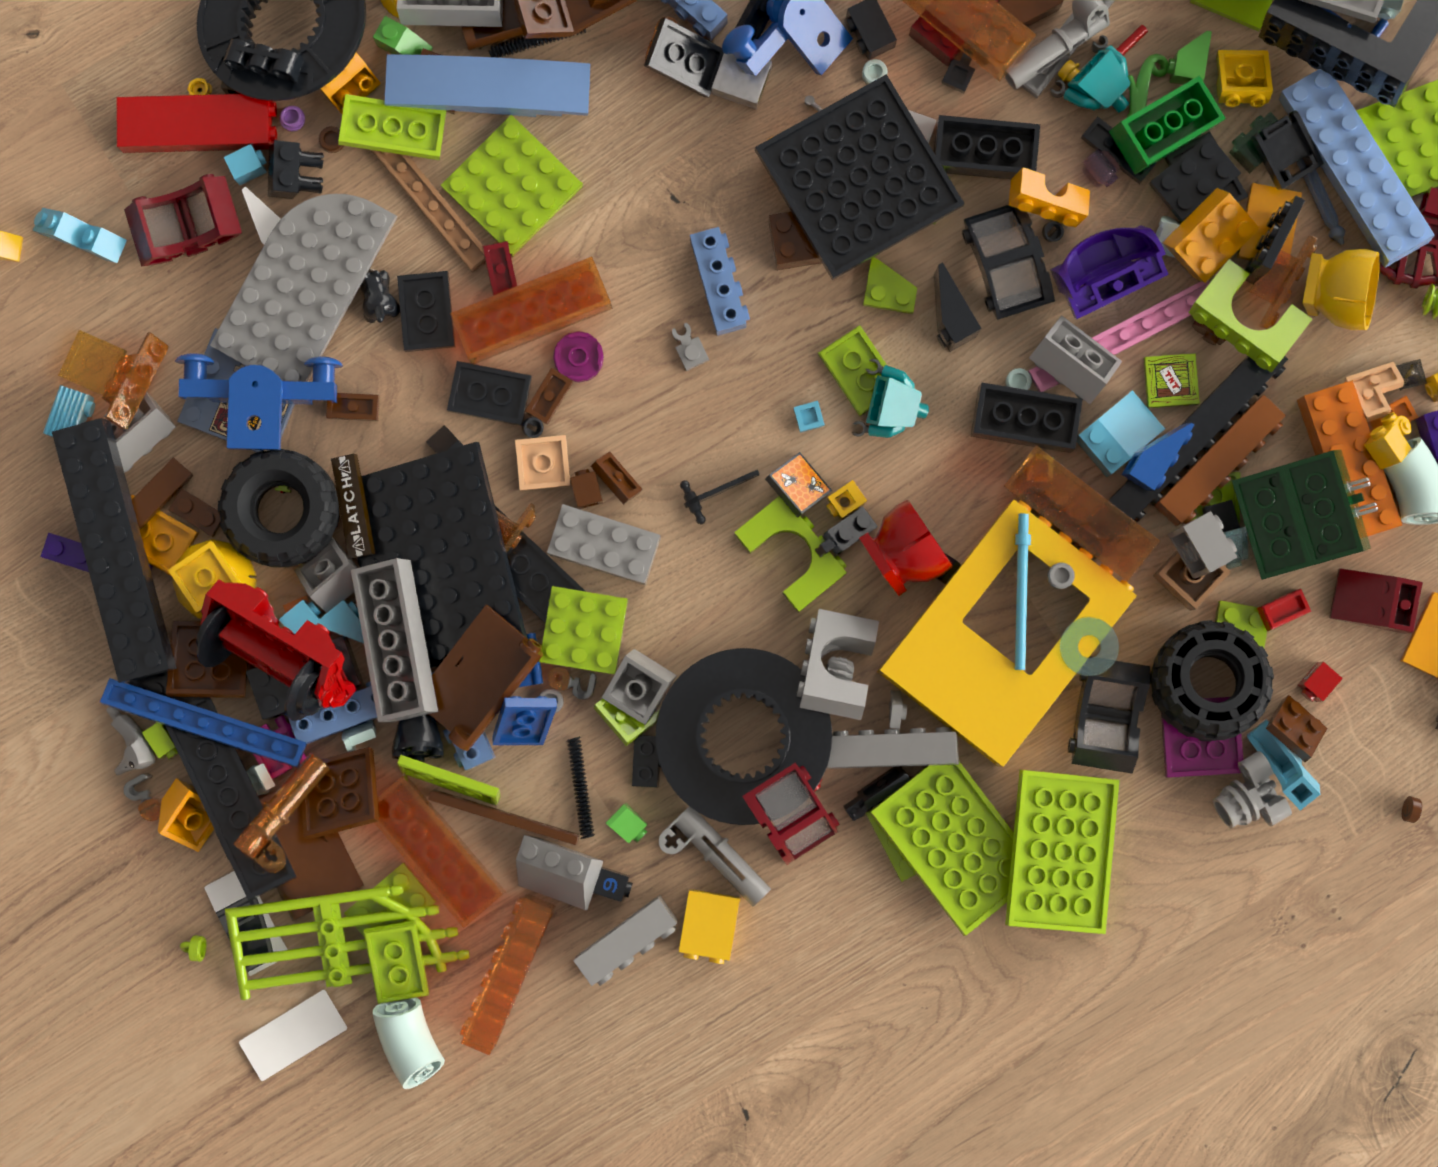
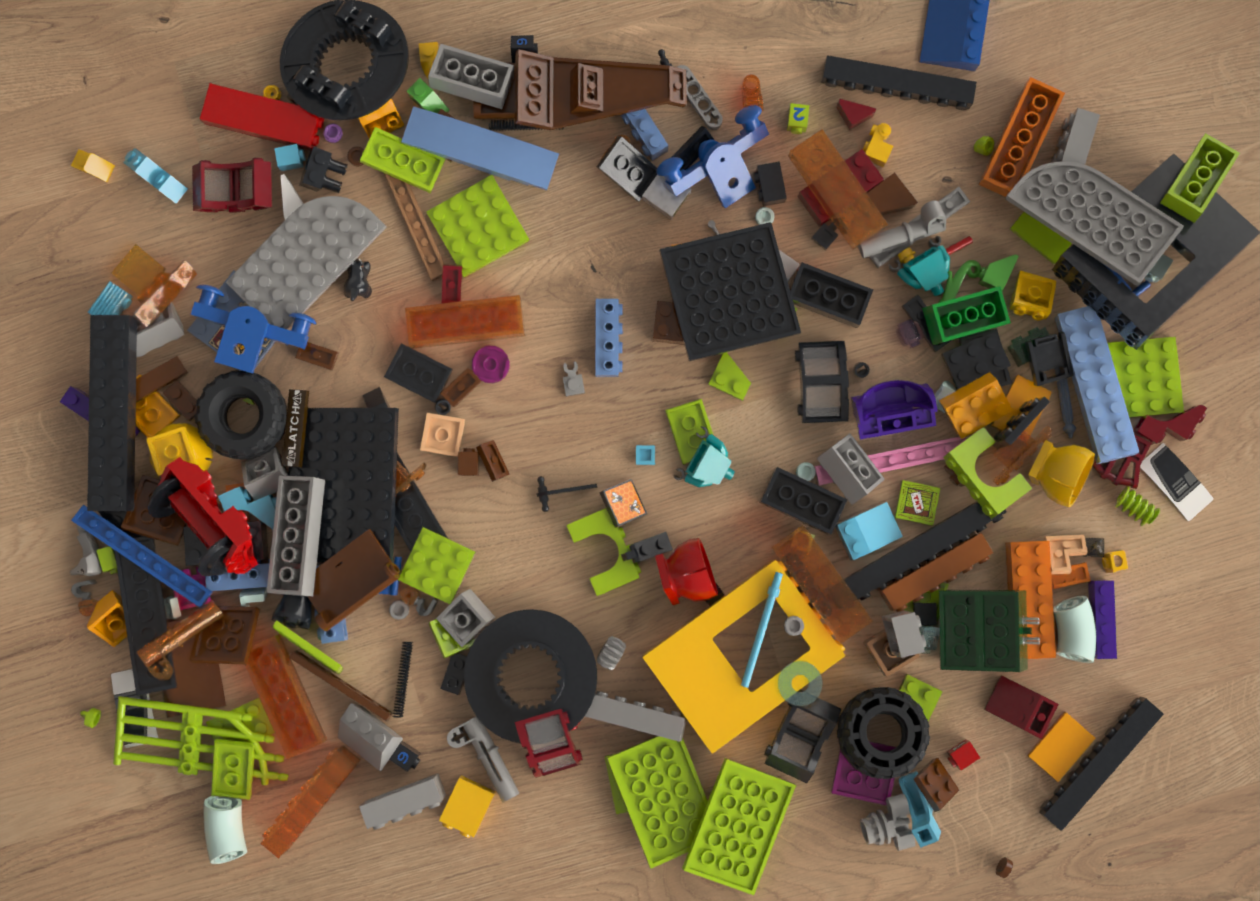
camera: 15 degrees right, 0 degrees up
(293, 1035) = (143, 800): white sticker -> none
(426, 311) = (388, 300): black plate -> none
(524, 721) = (373, 620): blue plate -> none
(604, 544) = (469, 507): light grey brick -> none
(627, 824) = (428, 716): bright green slope -> none
(822, 690) = (595, 659): light grey arch -> none
(848, 491) = (662, 524): yellow brick -> none
(876, 792) = (616, 743): black hinge -> none
(897, 709) = (648, 689): light grey plate -> none
(953, 316) = (770, 413): black slope -> none
(1031, 195) = (851, 339): light orange arch -> none
(1152, 461) = (885, 559): blue slope -> none
(1284, 609) = (952, 694): red tile -> none
(1387, 441) = (1061, 593): yellow brick -> none

